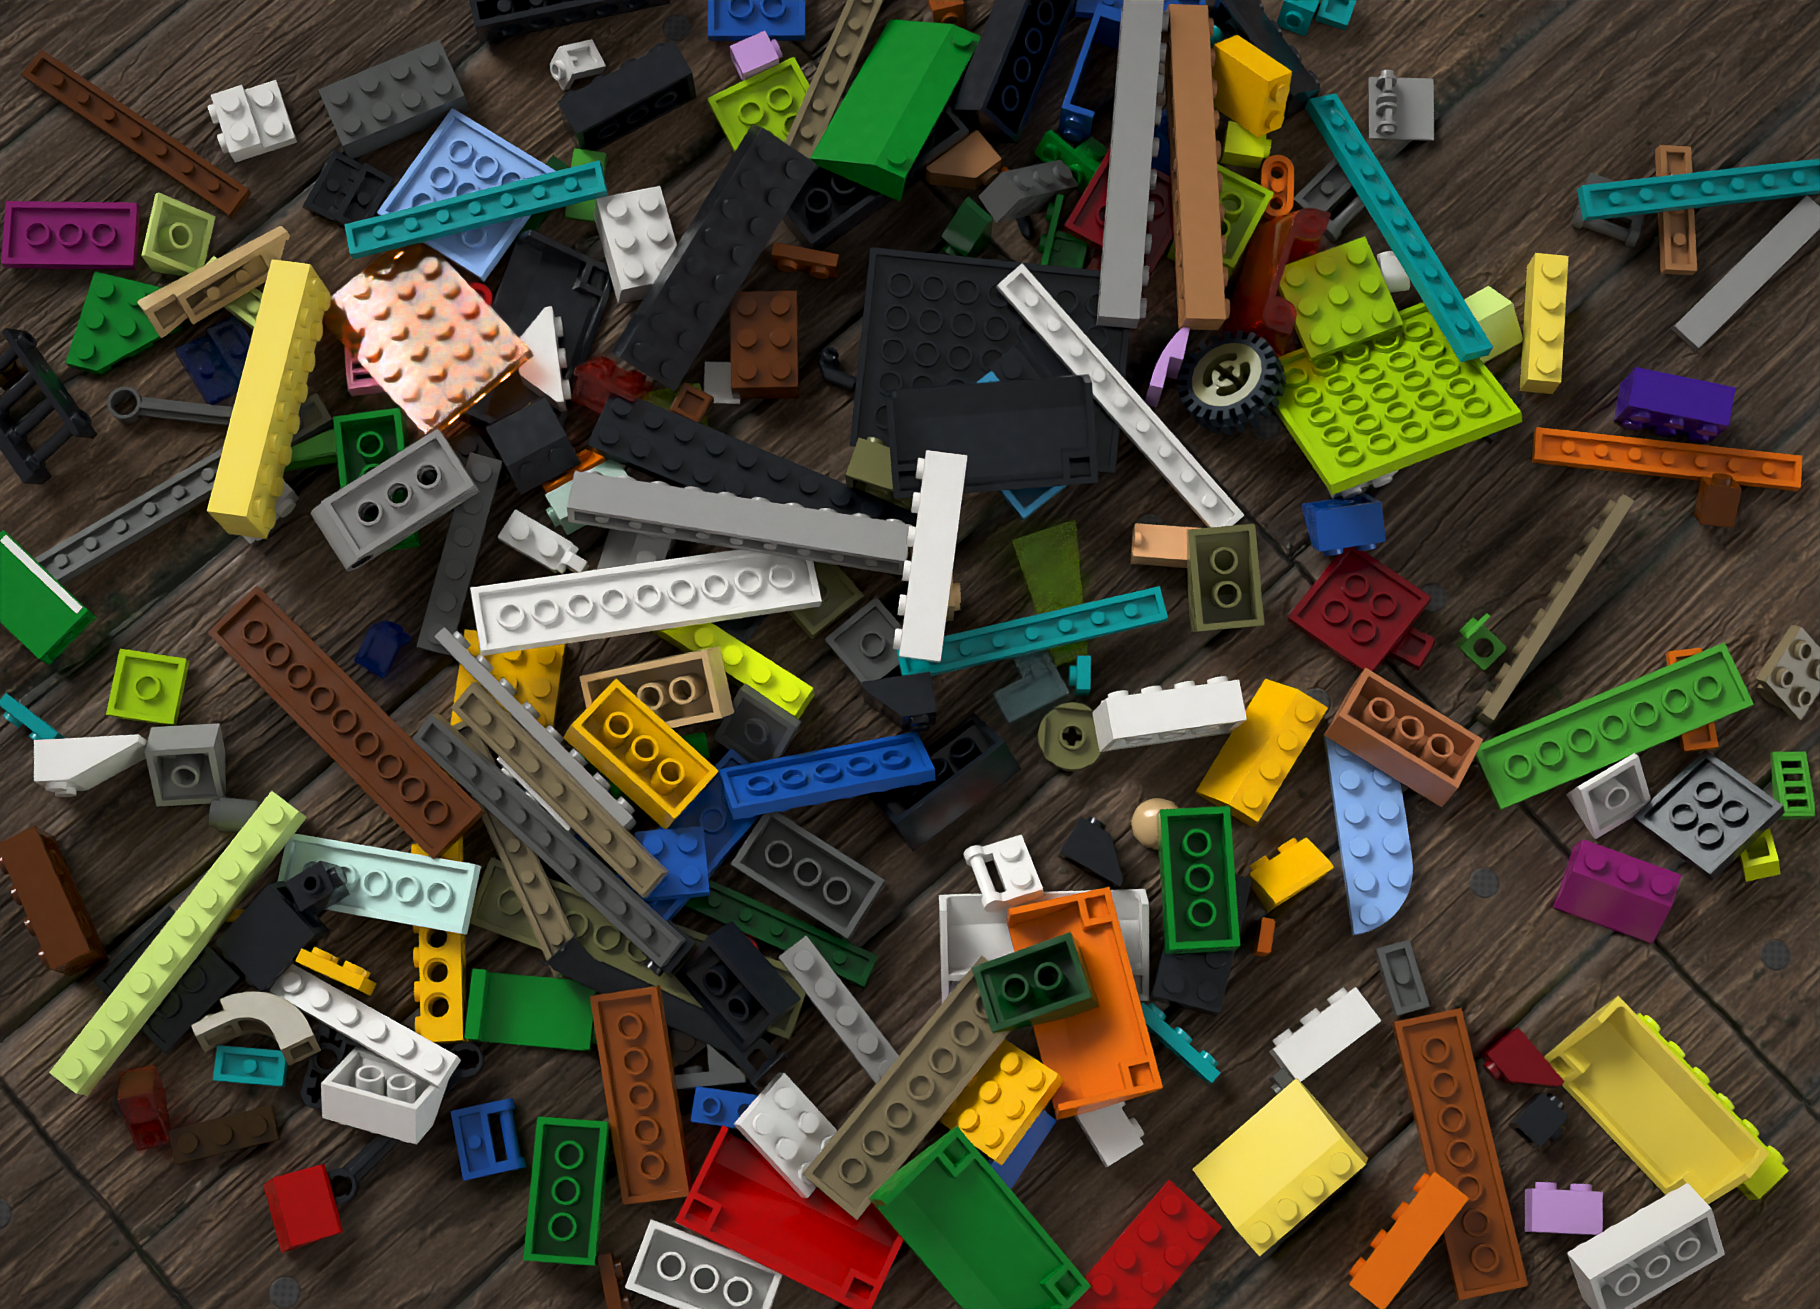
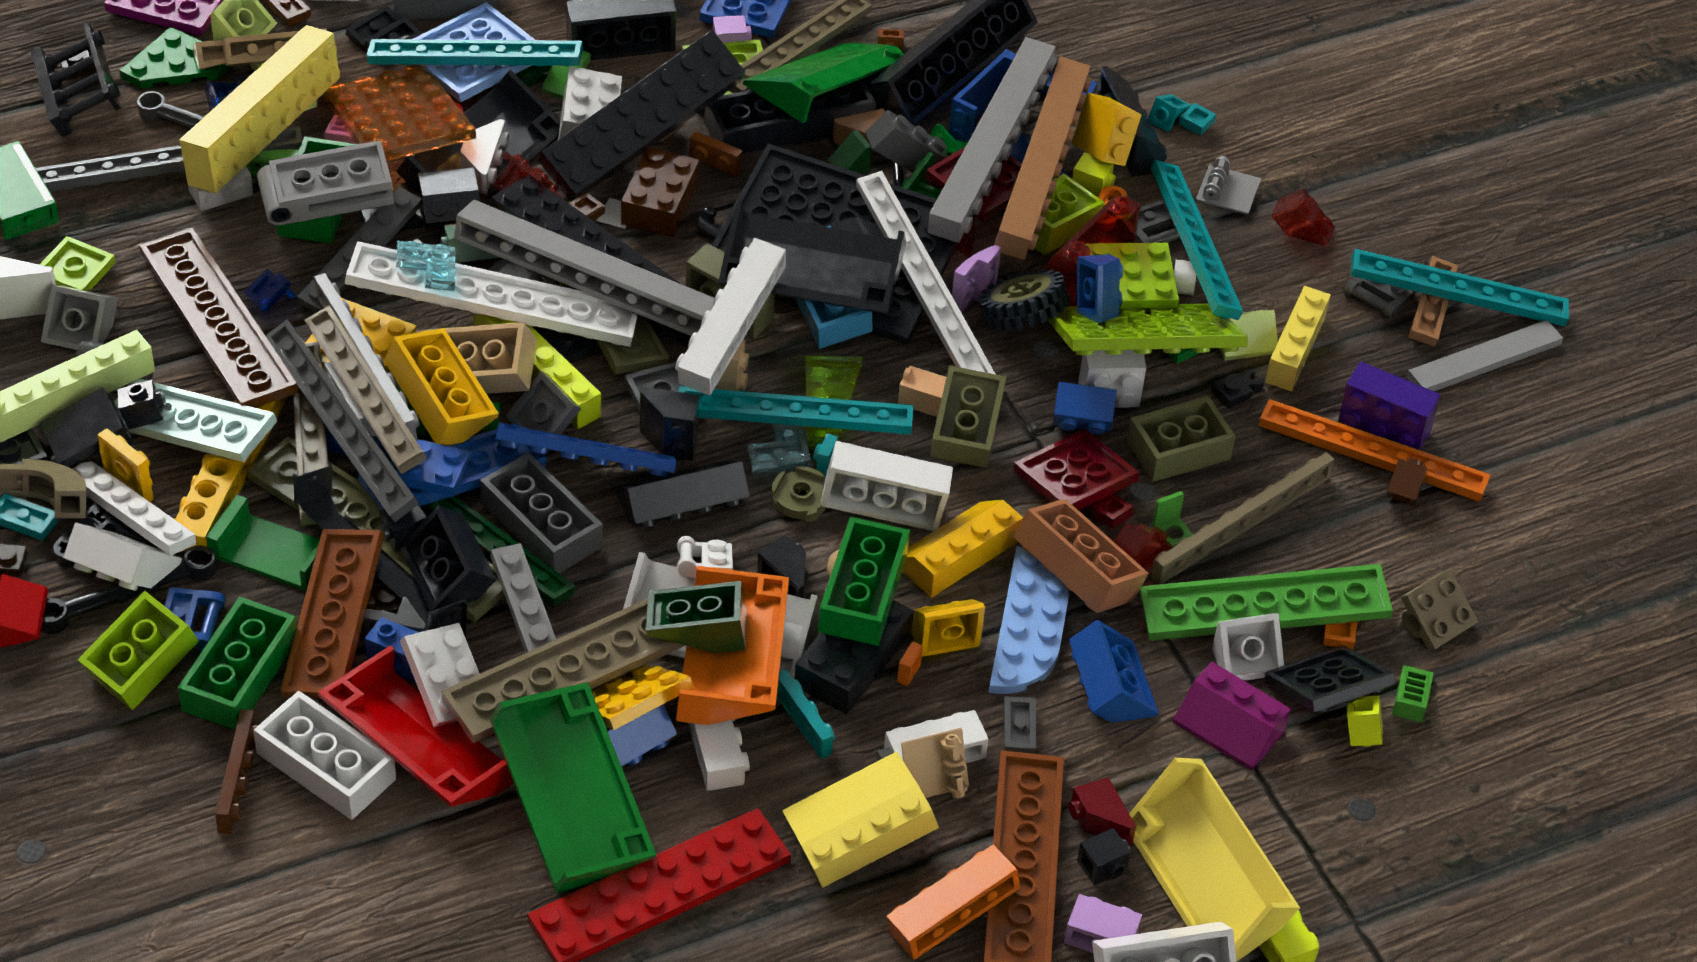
camera: 15 degrees right, 30 degrees down
(458, 1219) = (138, 650): none -> lime brick
(564, 582) = (435, 259): none -> clear light blue plate
(1319, 357) = (1099, 287): none -> blue slope
(1338, 1069) = (938, 763): none -> tan hinge
(1459, 524) = (1180, 438): none -> olive brick
(1459, 688) = (1142, 543): none -> clear red slope
(1478, 877) = (1112, 674): none -> blue slope
(1499, 132) = (1303, 218): none -> clear red slope

